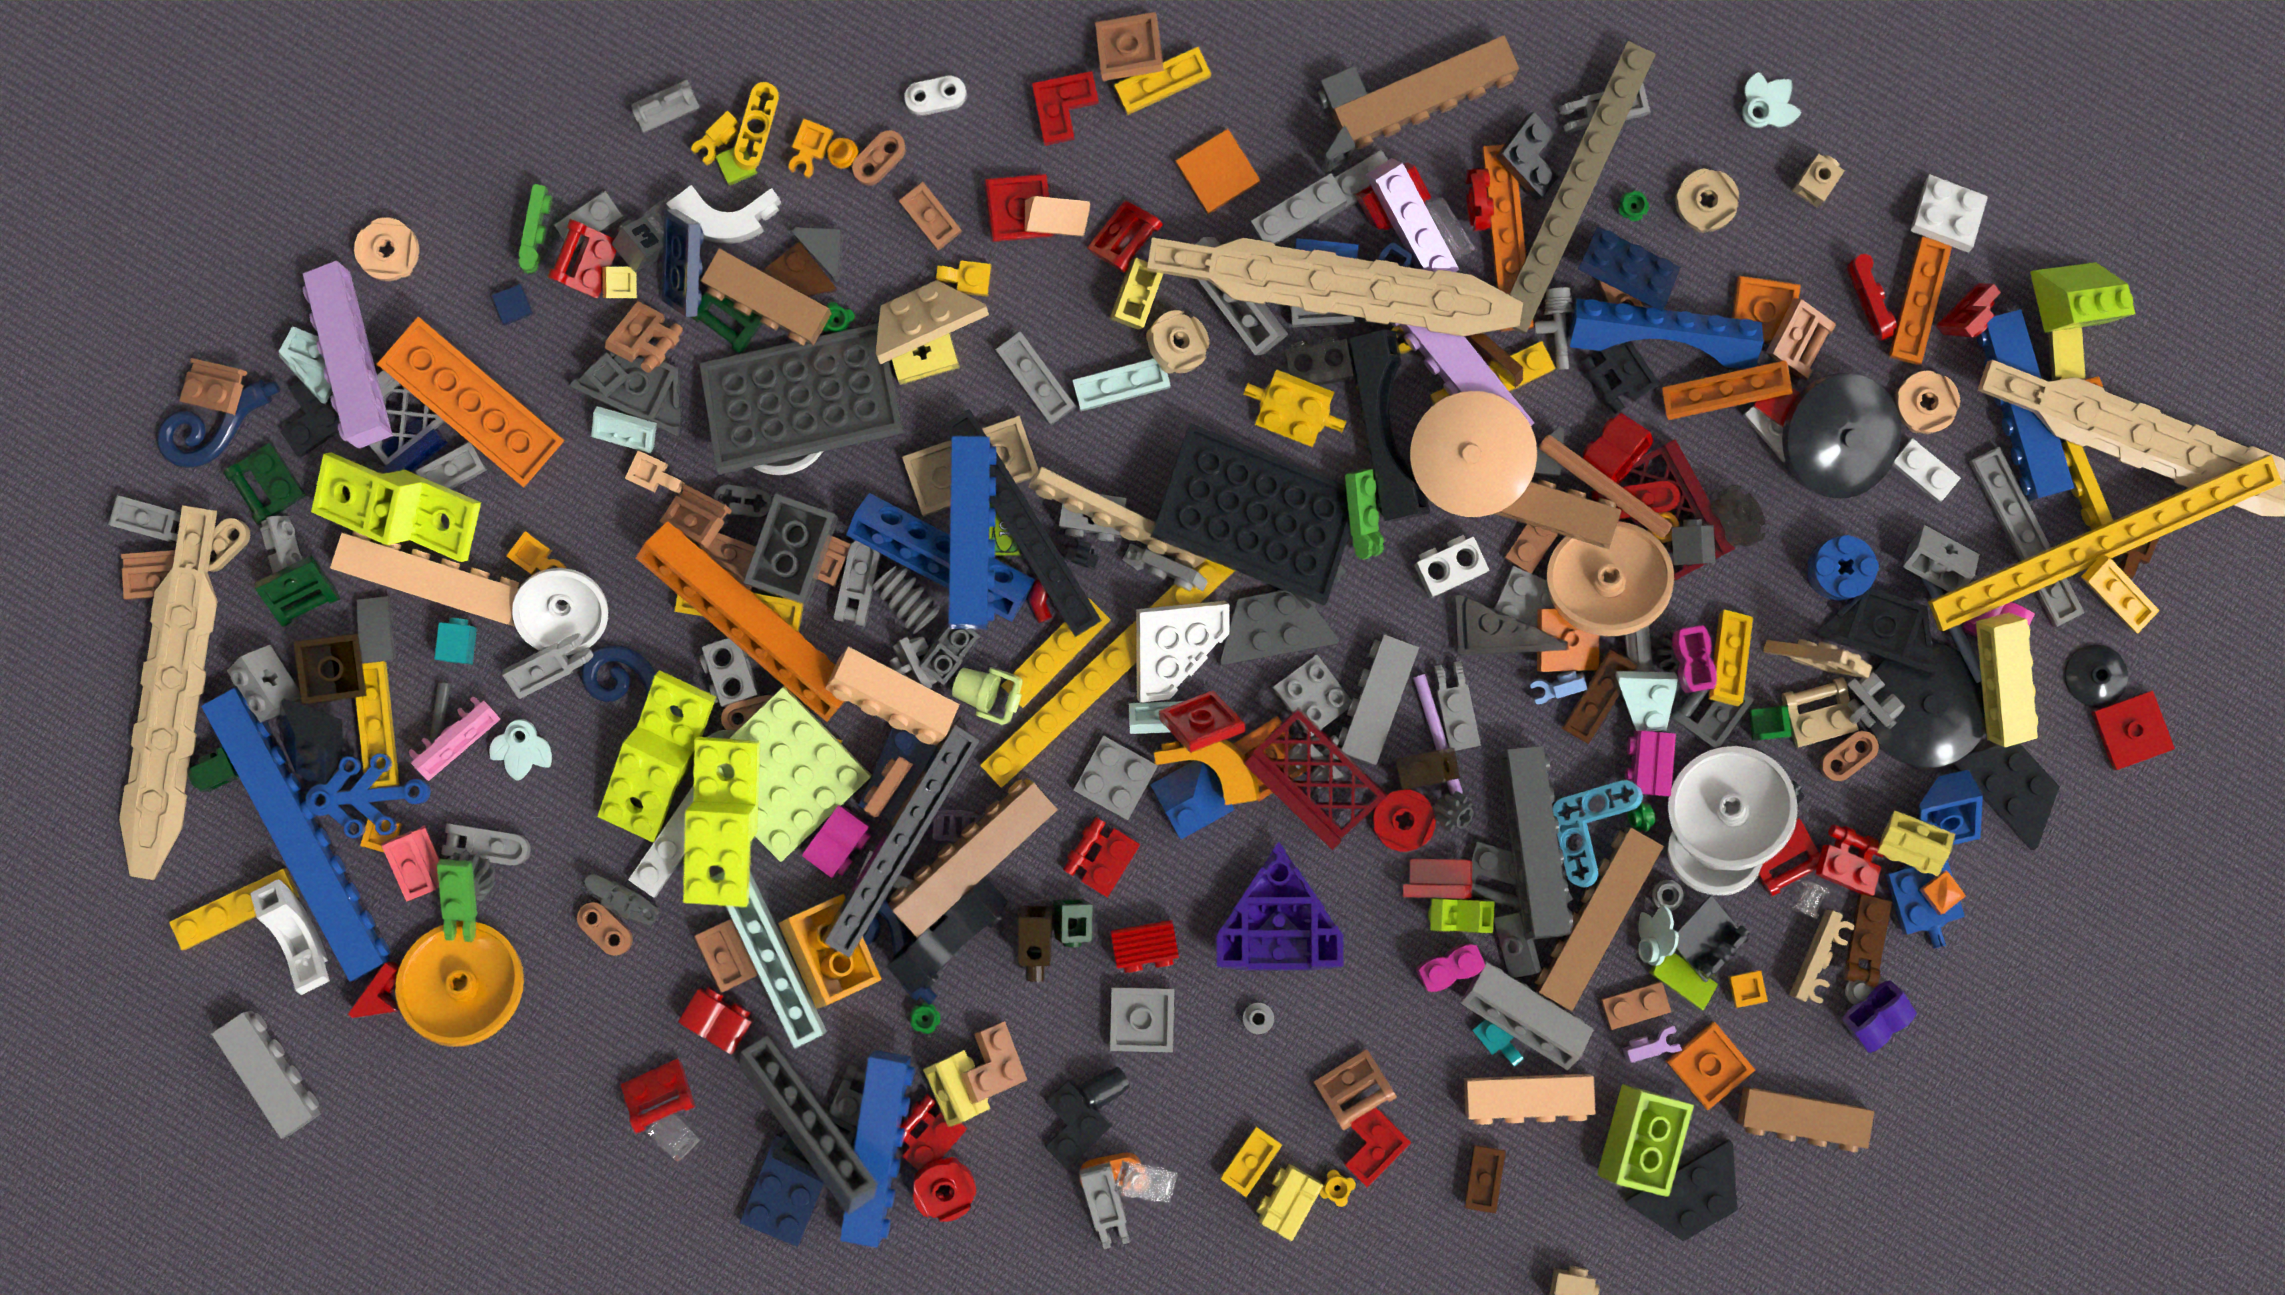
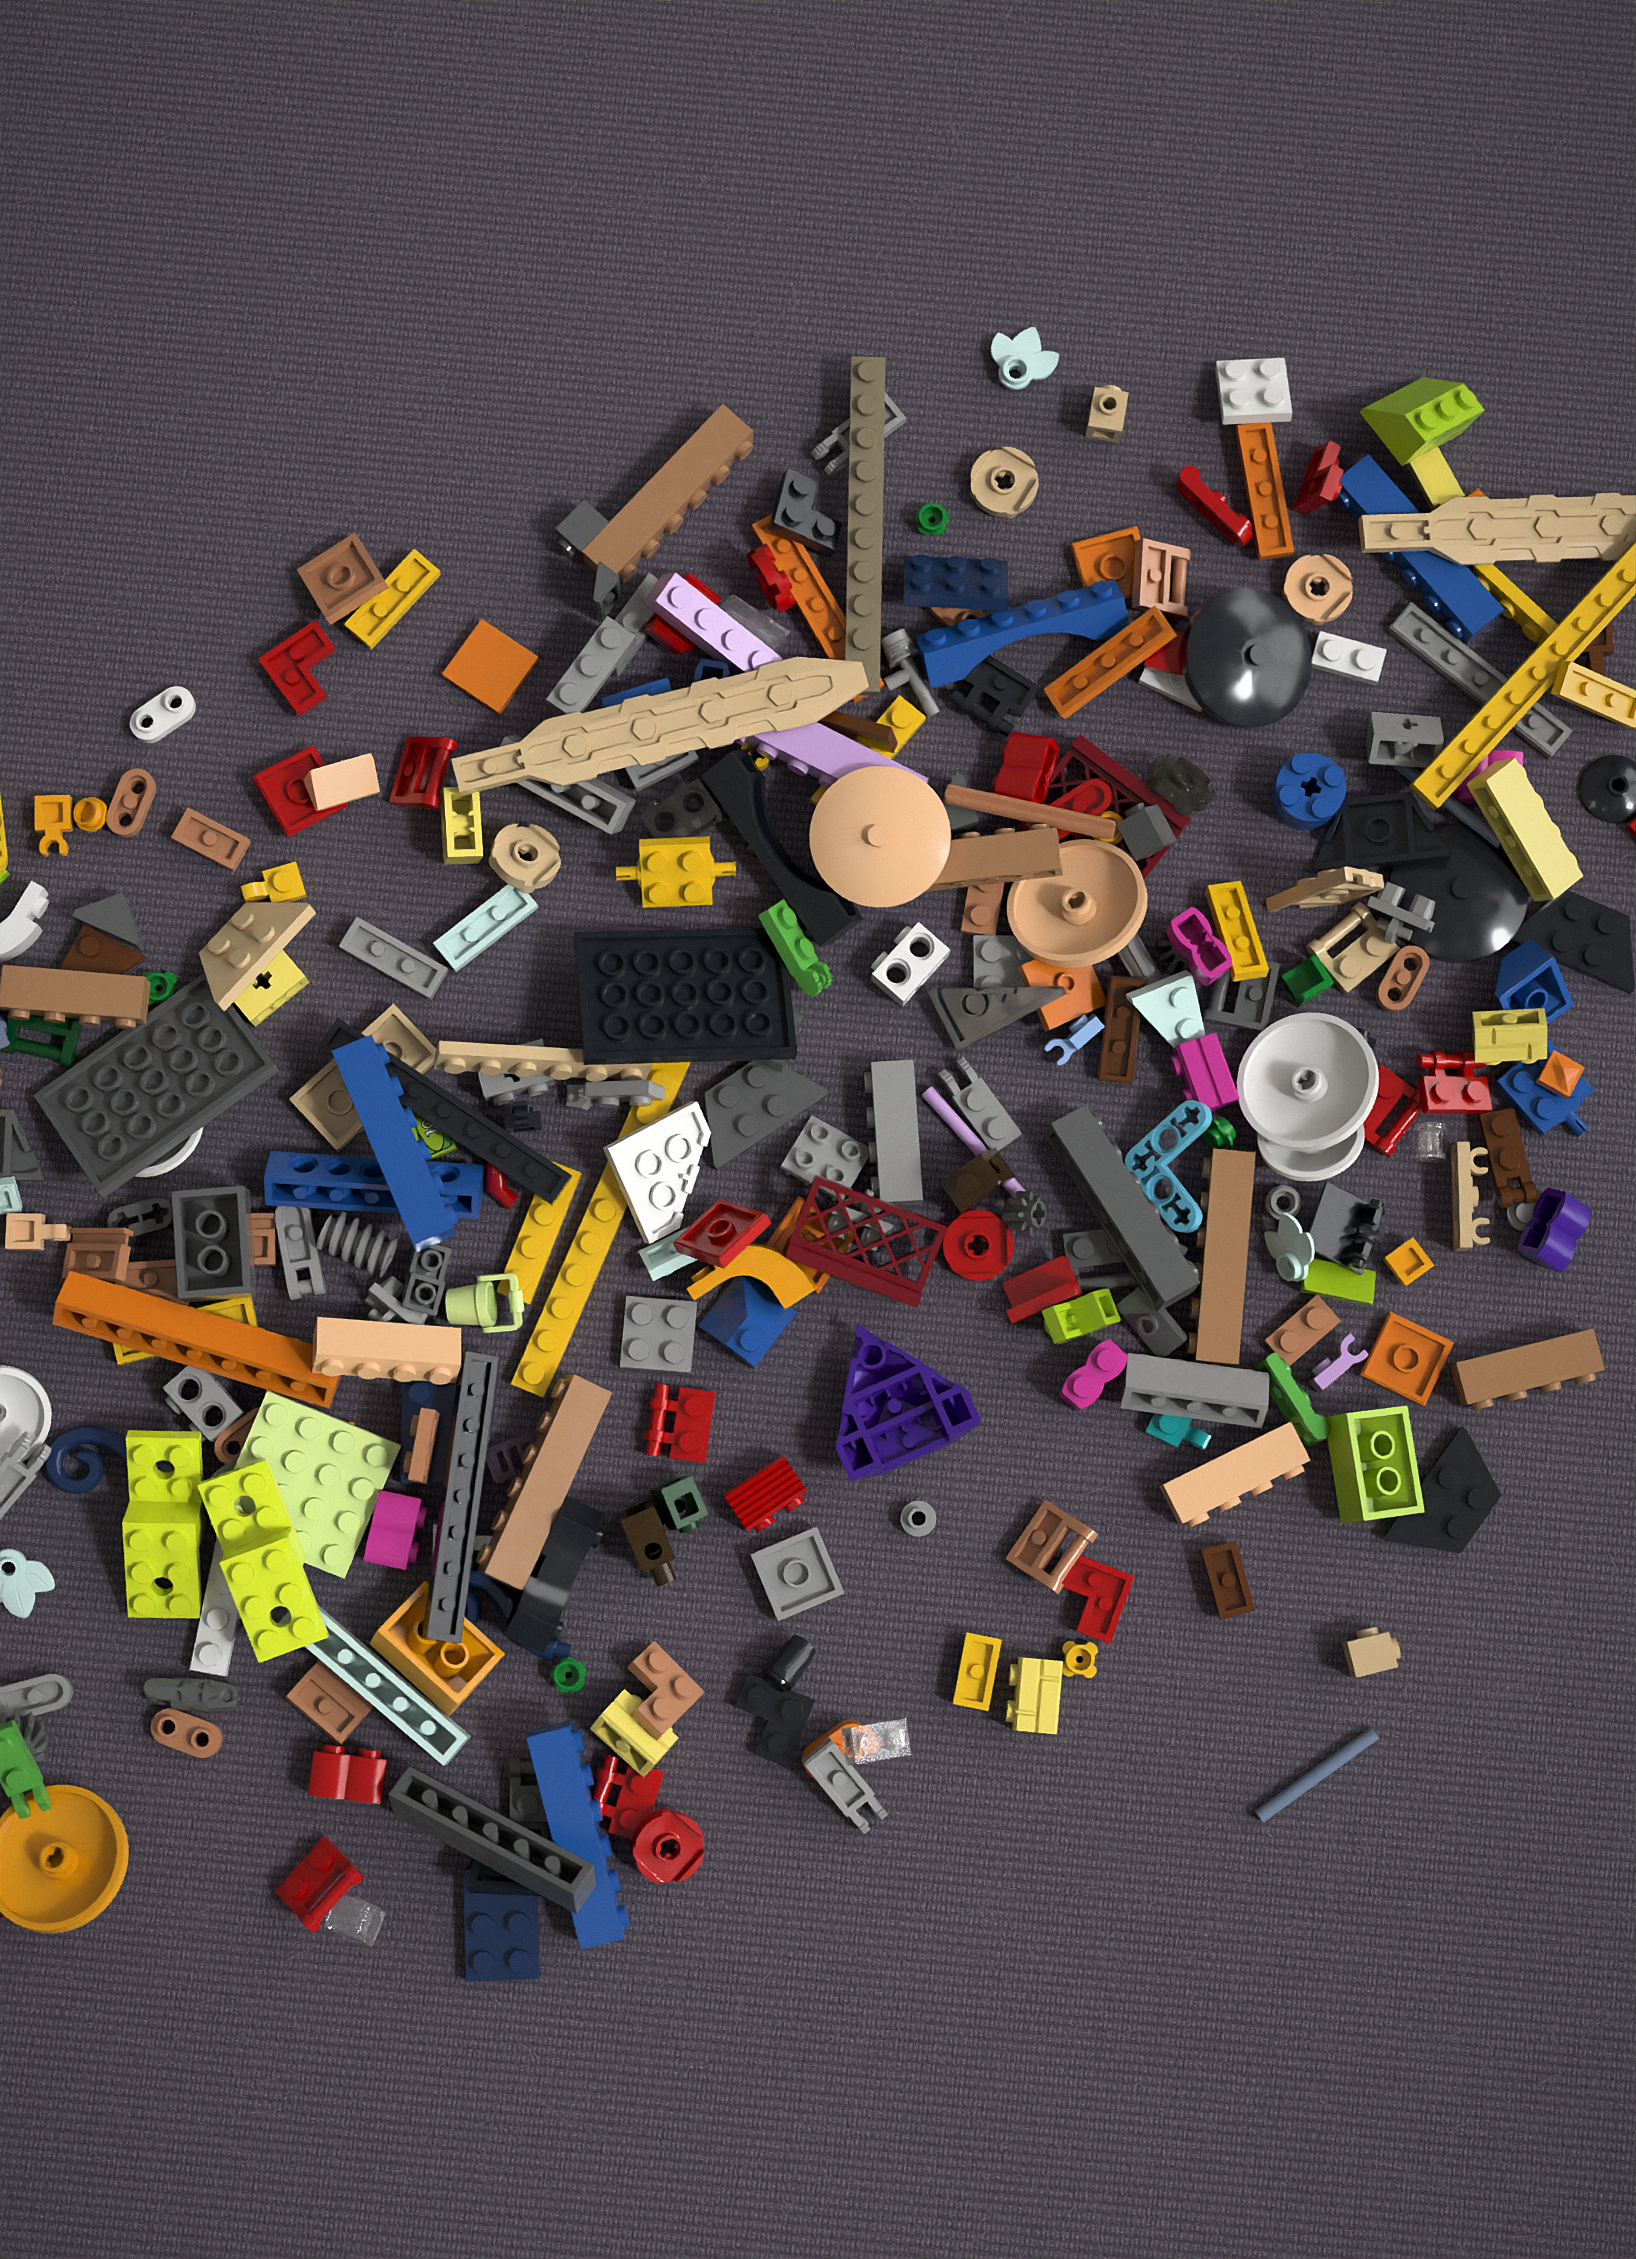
camera: 30 degrees left, 5 degrees down
(1602, 1058) = (1293, 1400): none -> bright green hinge

